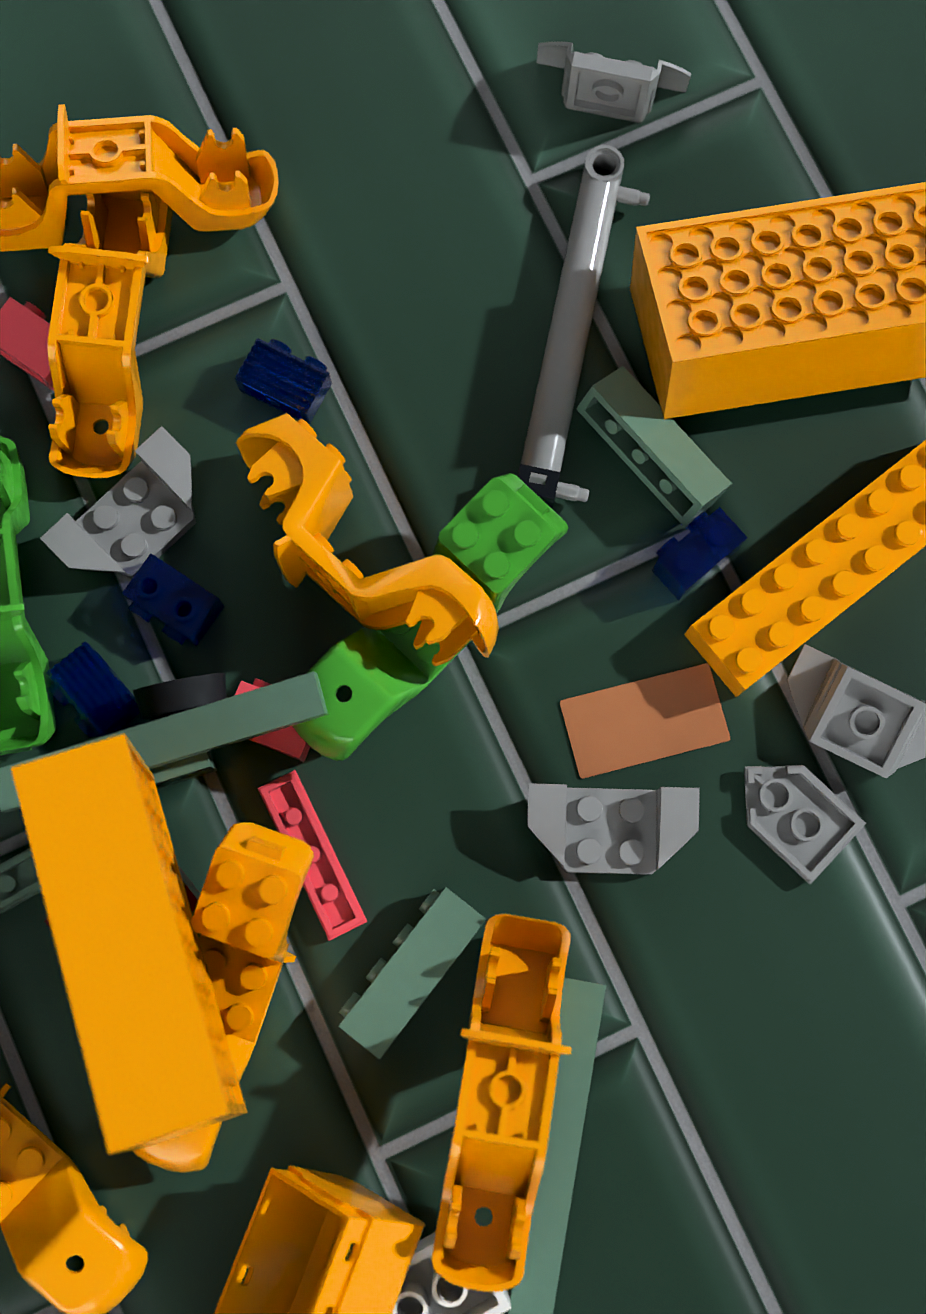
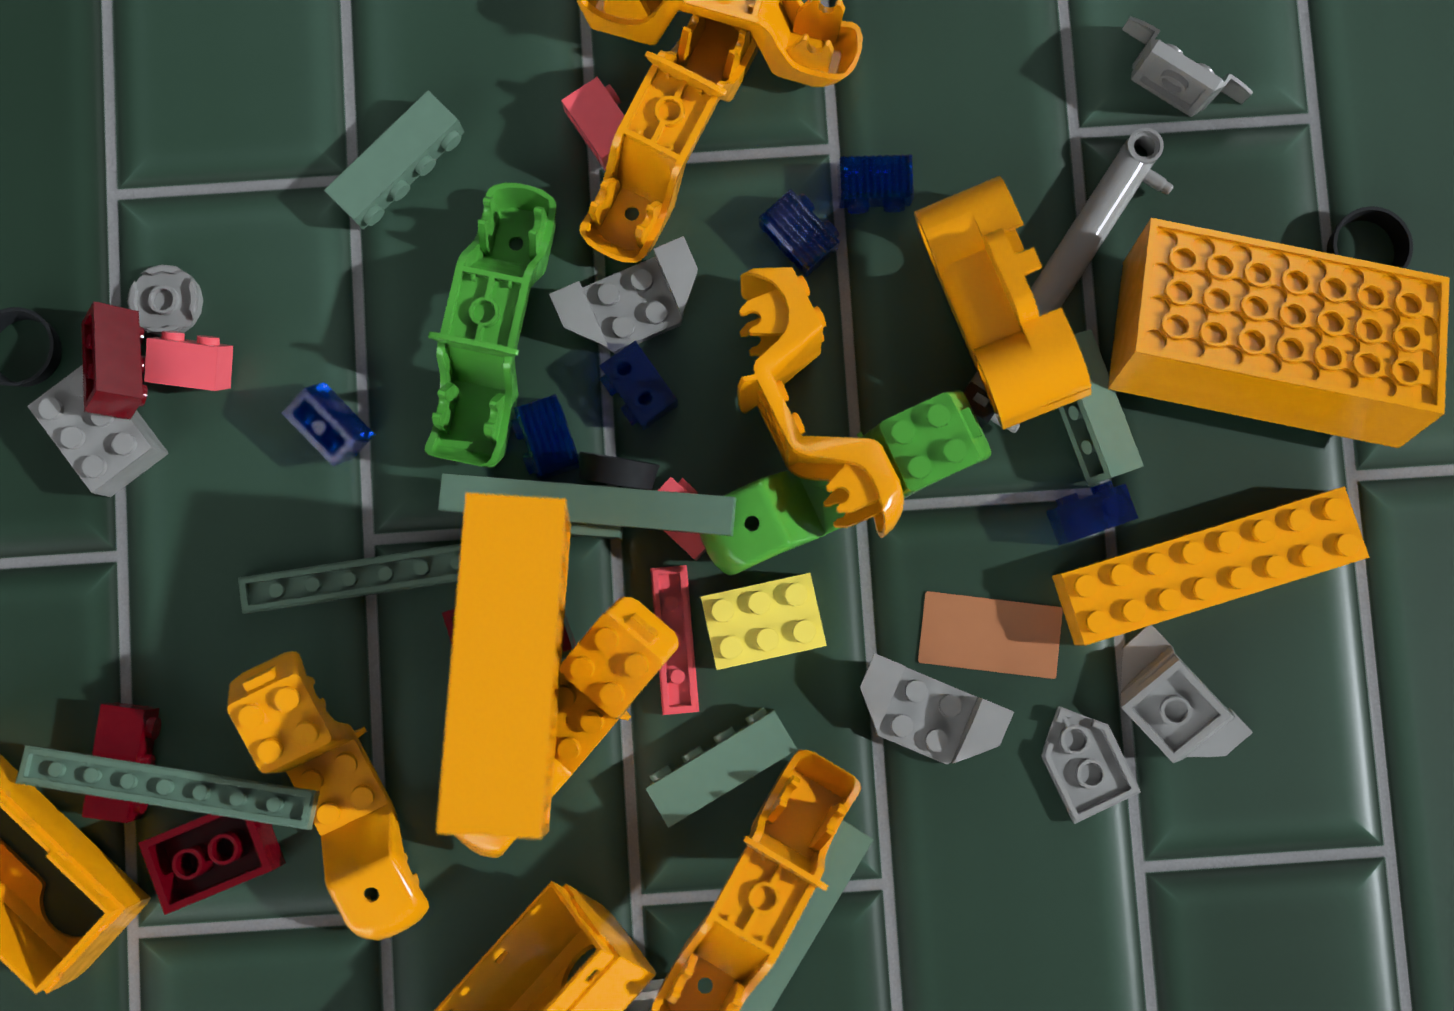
camera: 25 degrees right, 5 degrees up
(344, 301) = (875, 183): none -> clear blue brick
(398, 797) = (763, 621): none -> light yellow brick
(559, 414) = (1021, 357): none -> light orange piece
(875, 151) = (1389, 222): none -> black tyre

